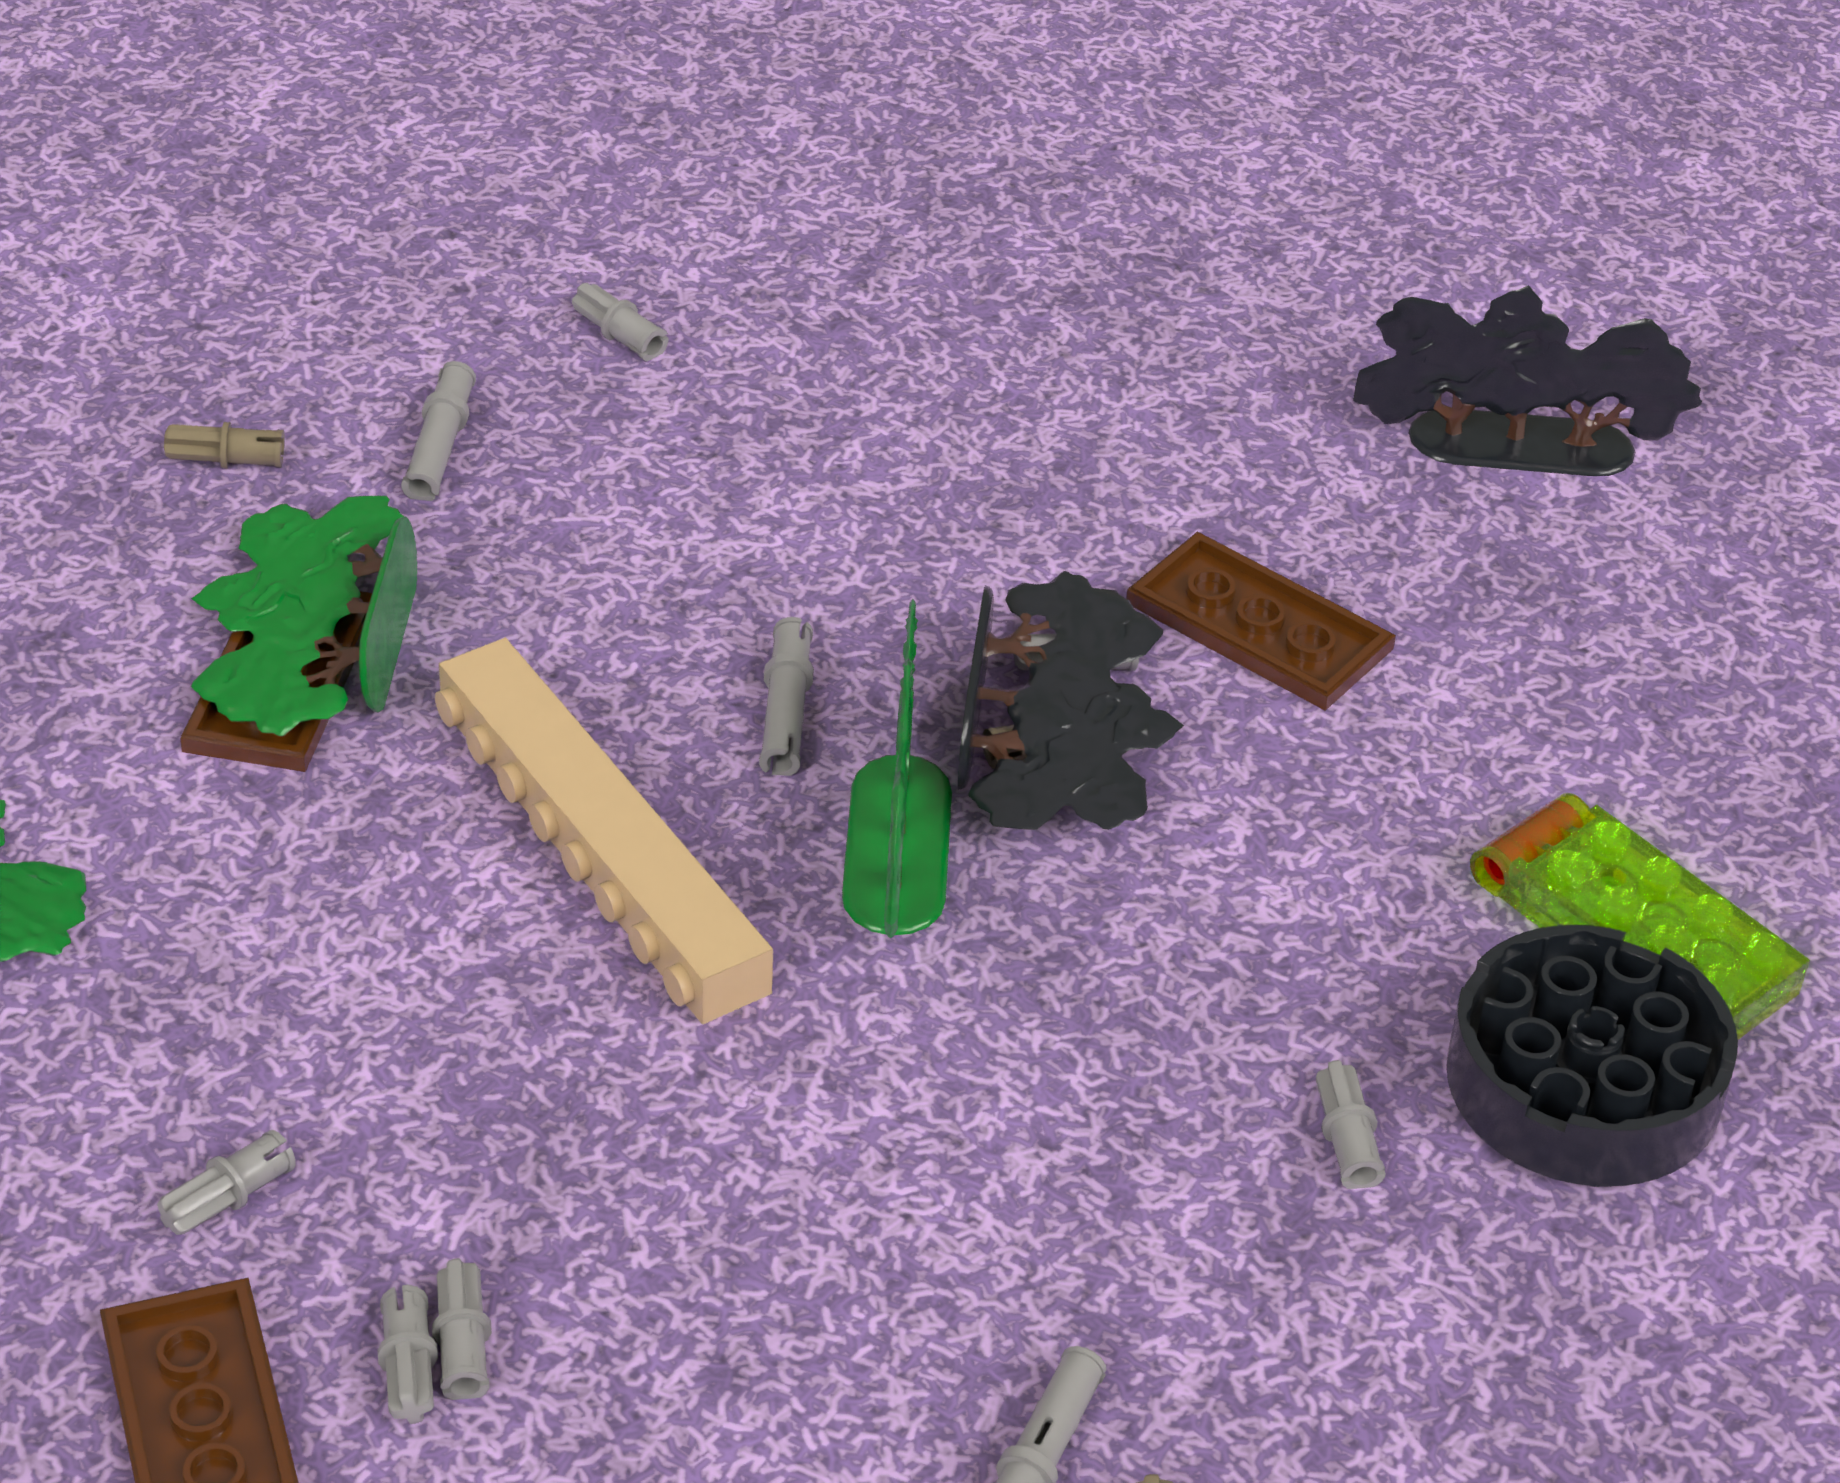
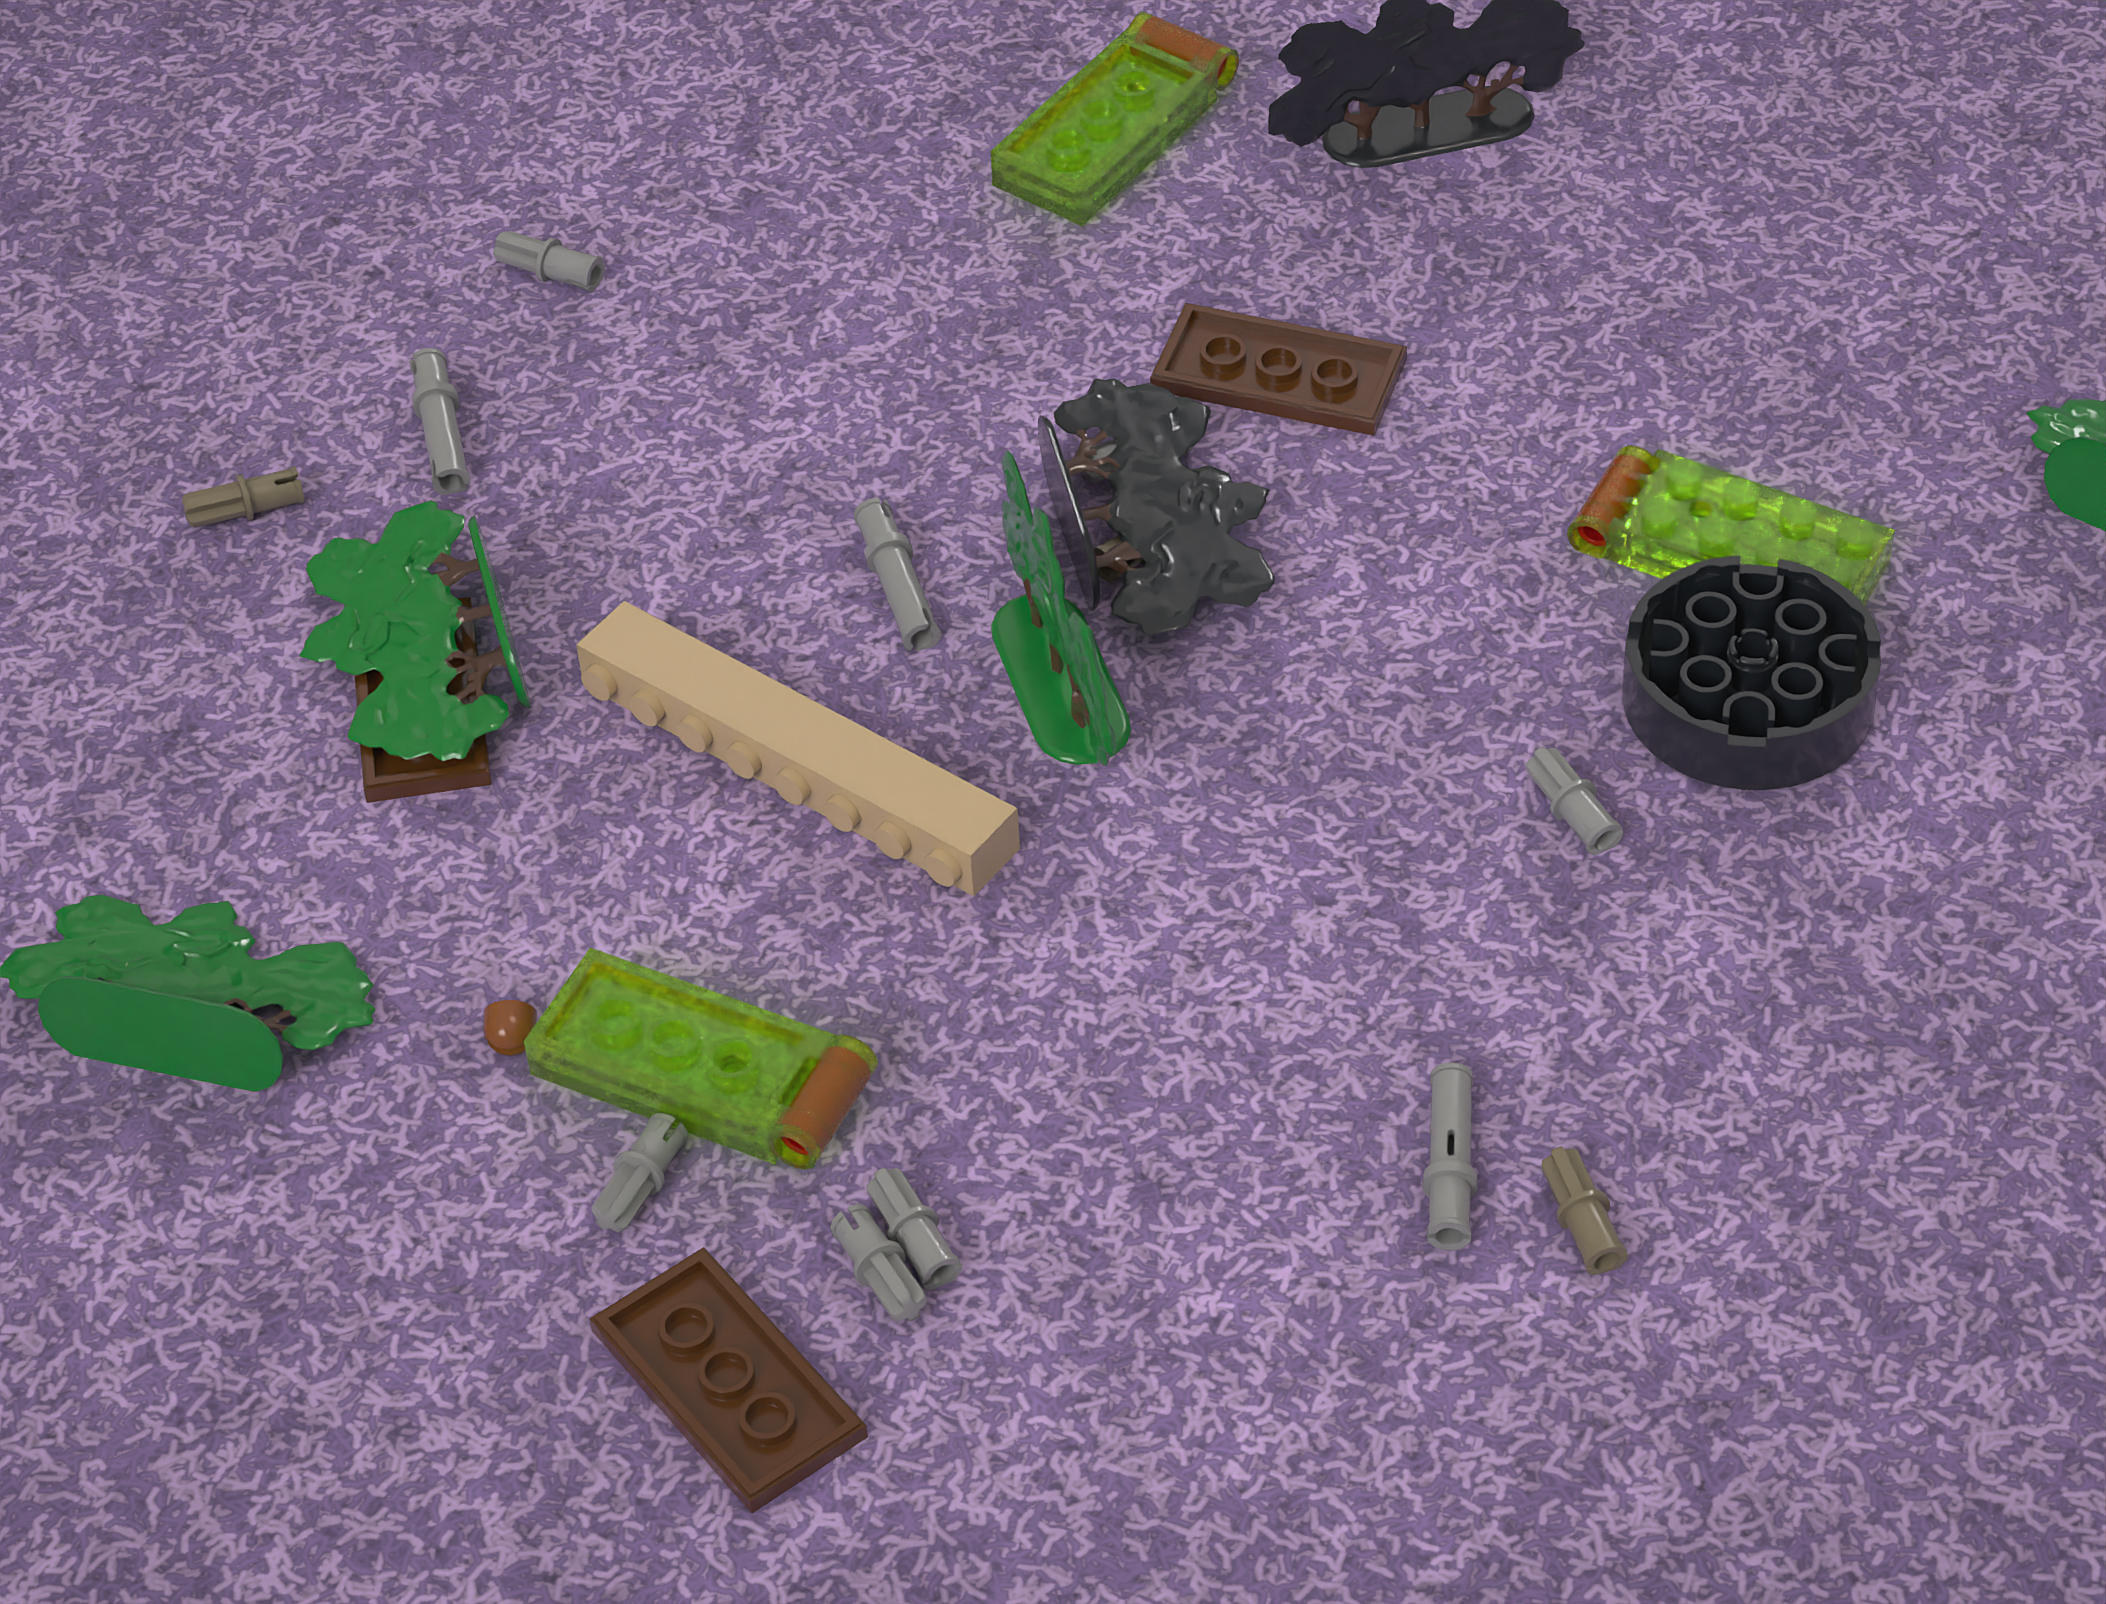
camera: 15 degrees left, 5 degrees up
(186, 1001) = (508, 1025): none -> dark orange hinge
(340, 1092) = (700, 1057): none -> clear neon green hinge
(1210, 344) = (1113, 118): none -> clear neon green hinge

